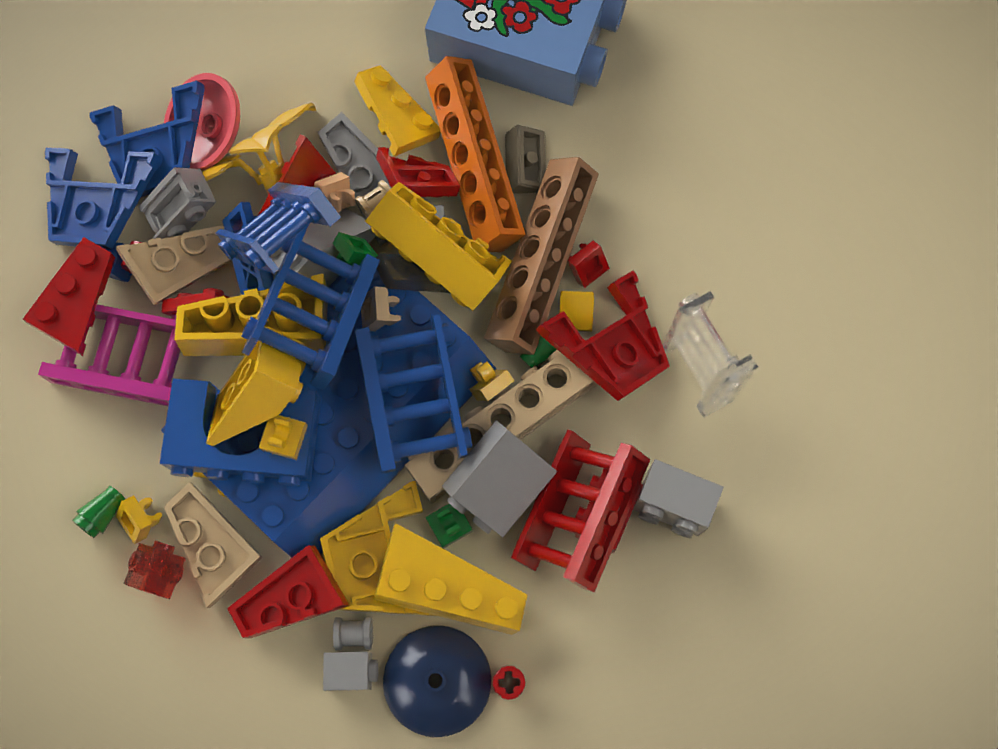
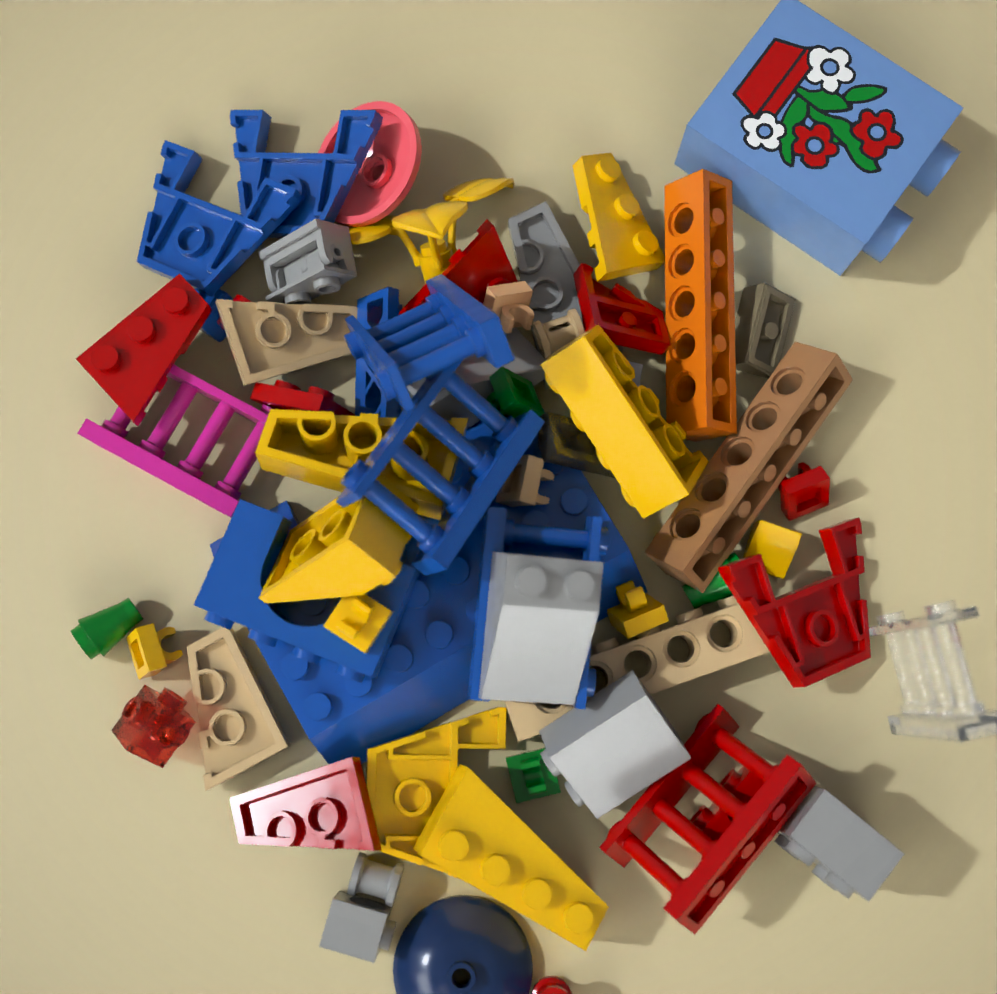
camera: 15 degrees right, 5 degrees up
(415, 403) = (538, 627): none -> slope

